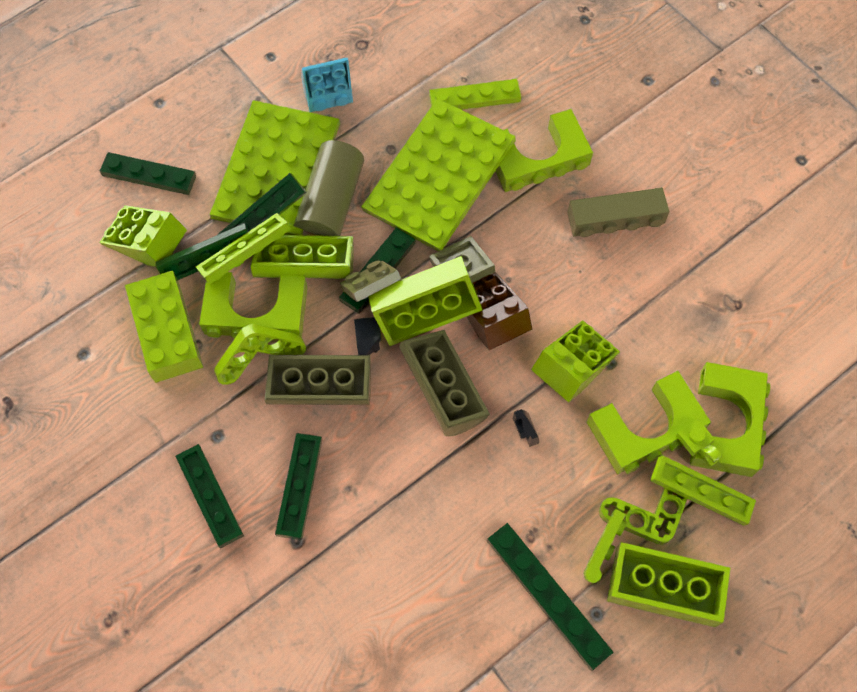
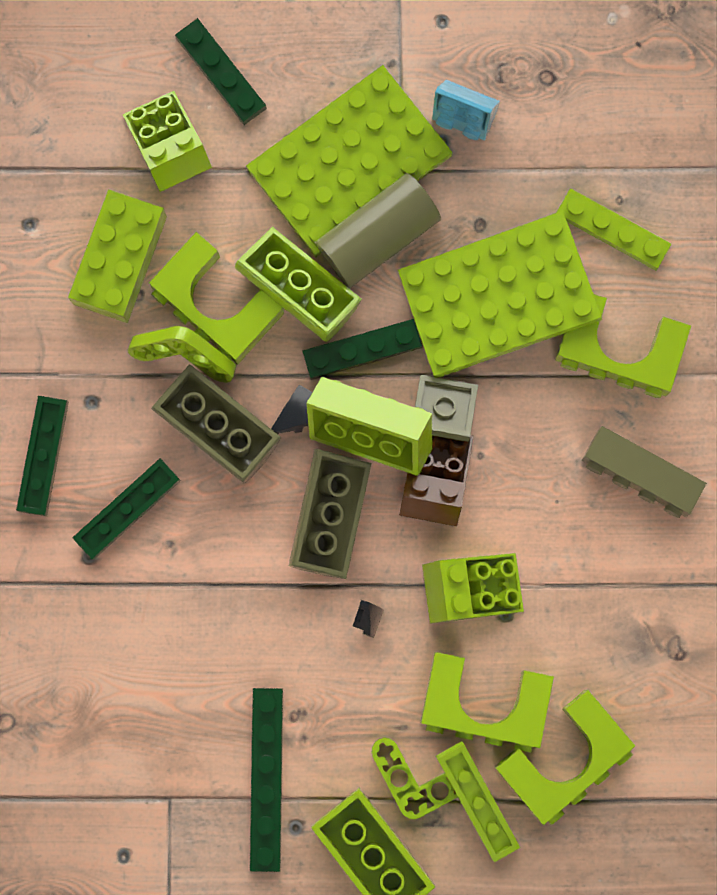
camera: 40 degrees right, 15 degrees up
(185, 261) = (209, 210): dark green plate -> none
(243, 248) = (243, 237): lime plate -> none
(274, 201) = (292, 208): dark green plate -> none
(374, 278) = (335, 364): olive plate -> none
(604, 547) = (345, 780): lime plate -> none
(699, 440) = (511, 754): lime plate -> none

